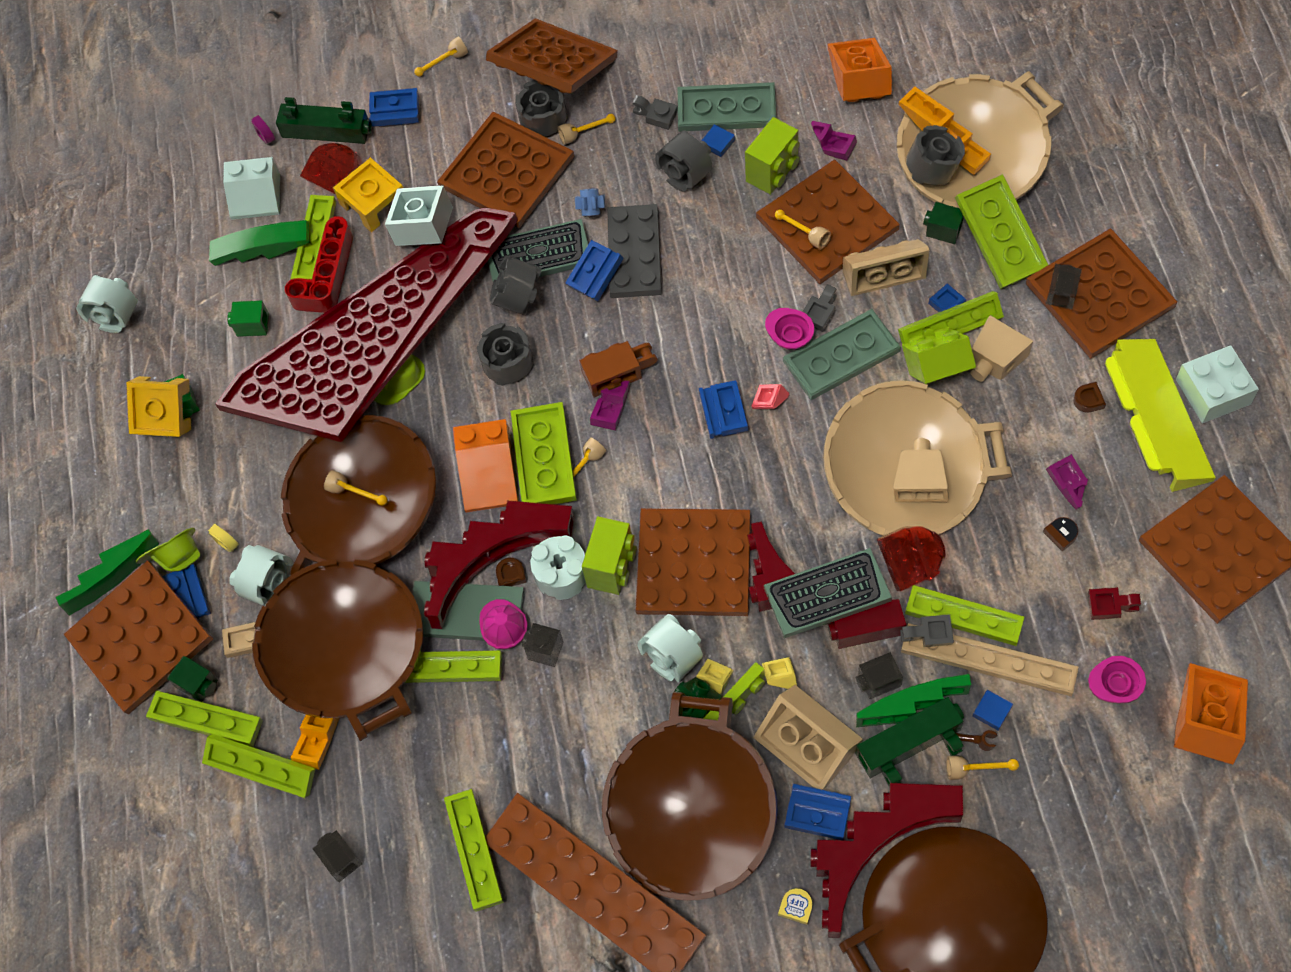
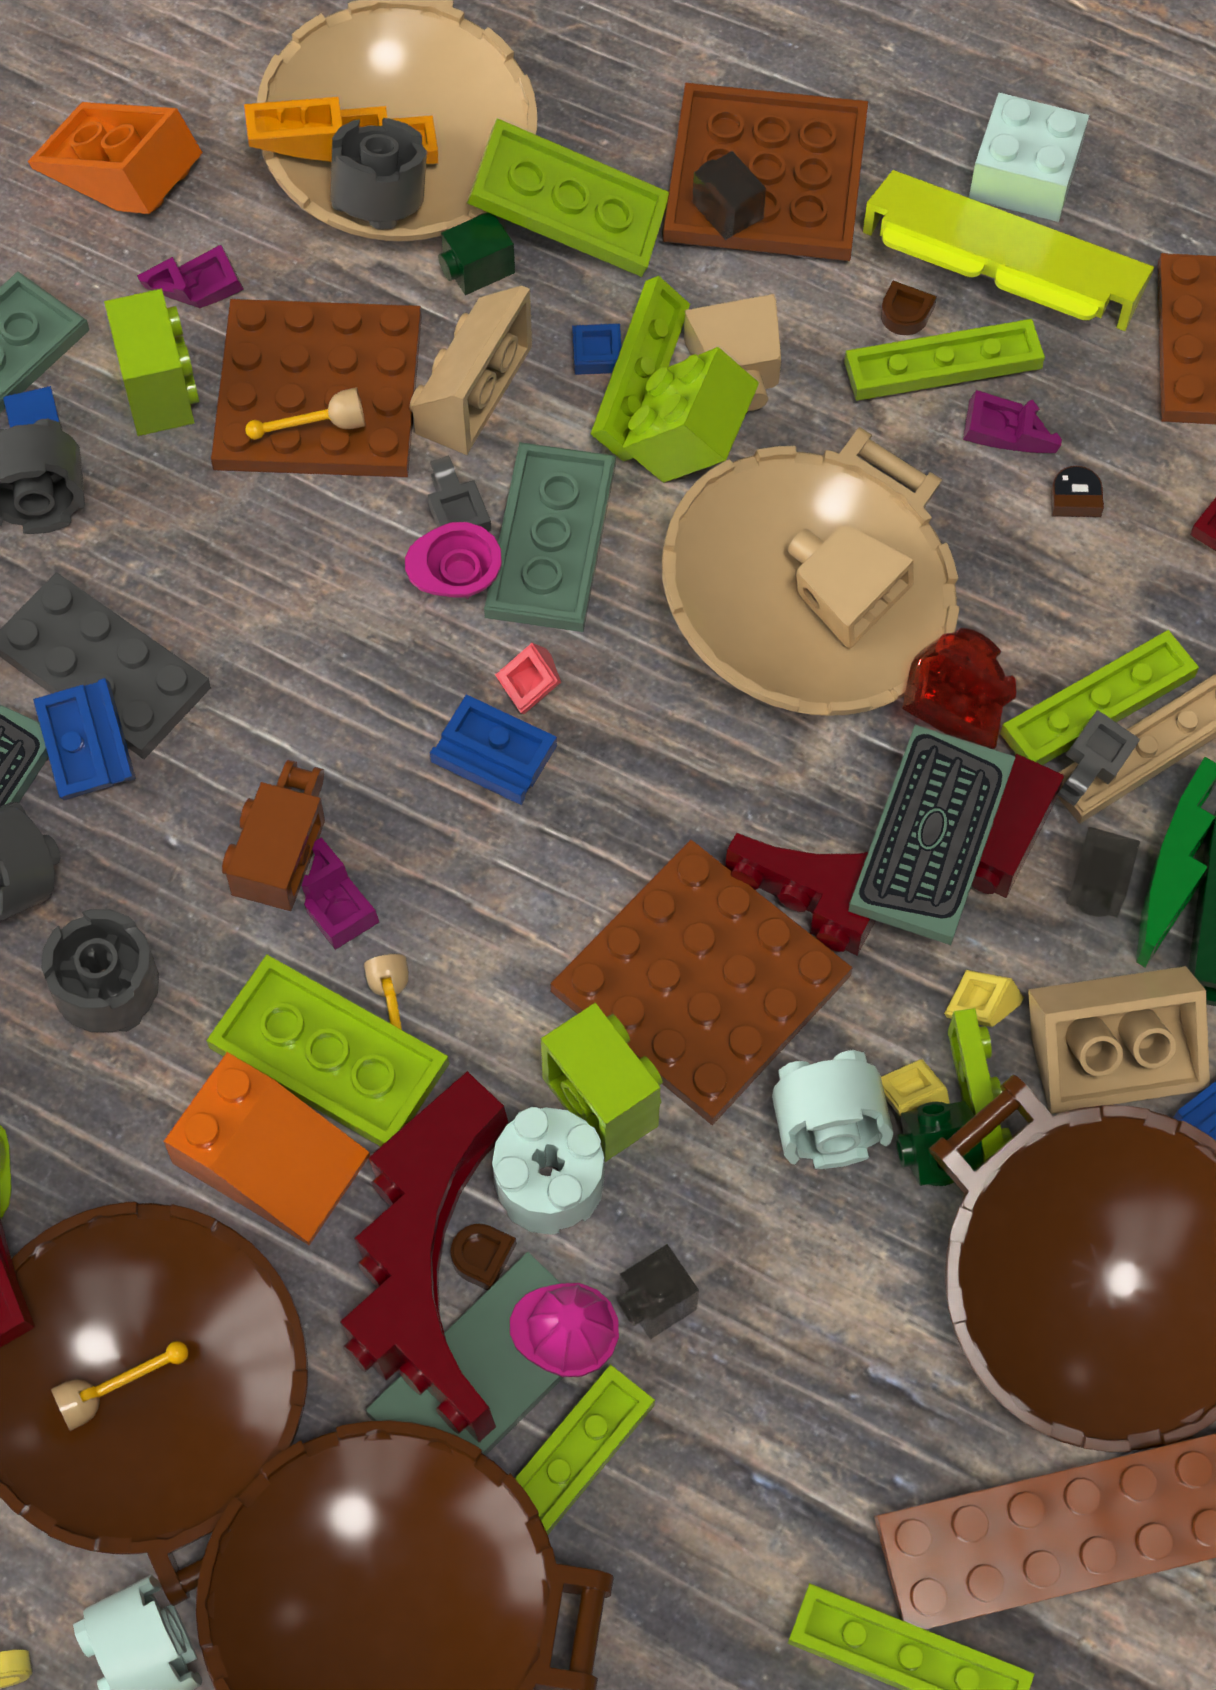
camera: 60 degrees left, 0 degrees up
(1076, 431) = (944, 359): none -> lime plate

